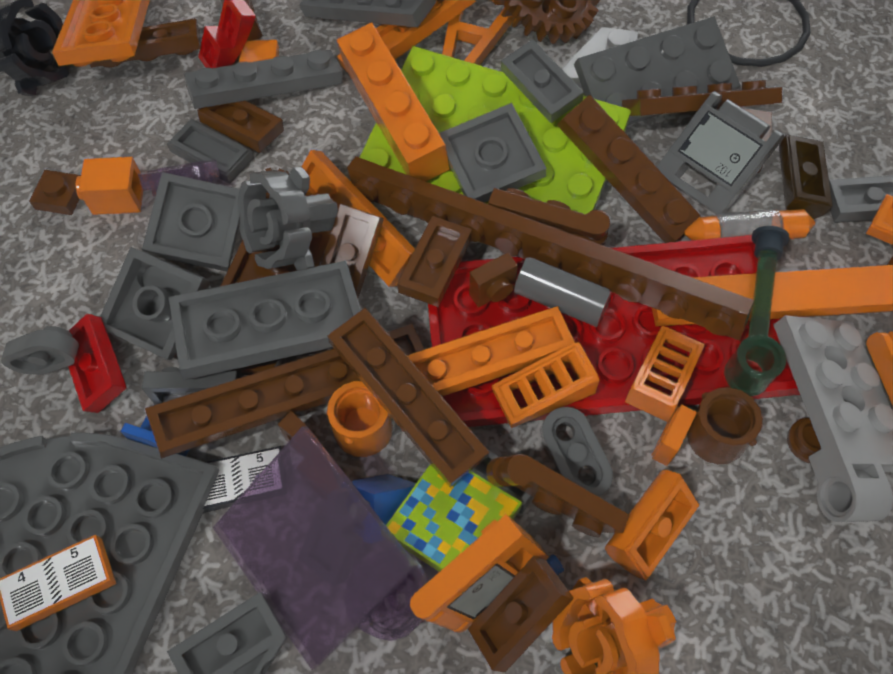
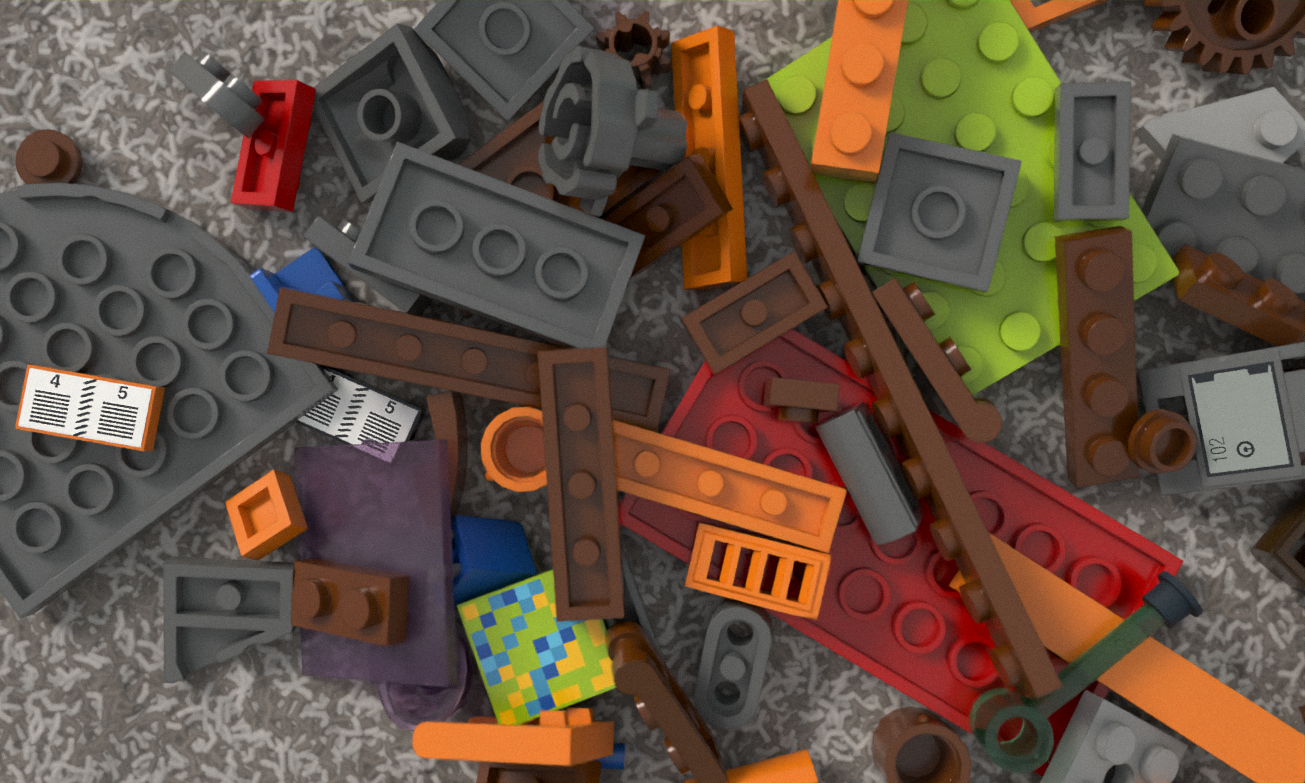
camera: 30 degrees right, 25 degrees up
(219, 575) = (266, 515): none -> orange plate
(311, 577) = (350, 601): none -> reddish brown plate
(651, 399) = (899, 686): orange slope -> none
(673, 435) = (858, 723): orange tile -> none
(694, 184) = (1162, 442): none -> reddish brown plate
(795, 222) = (1198, 543): piece -> none

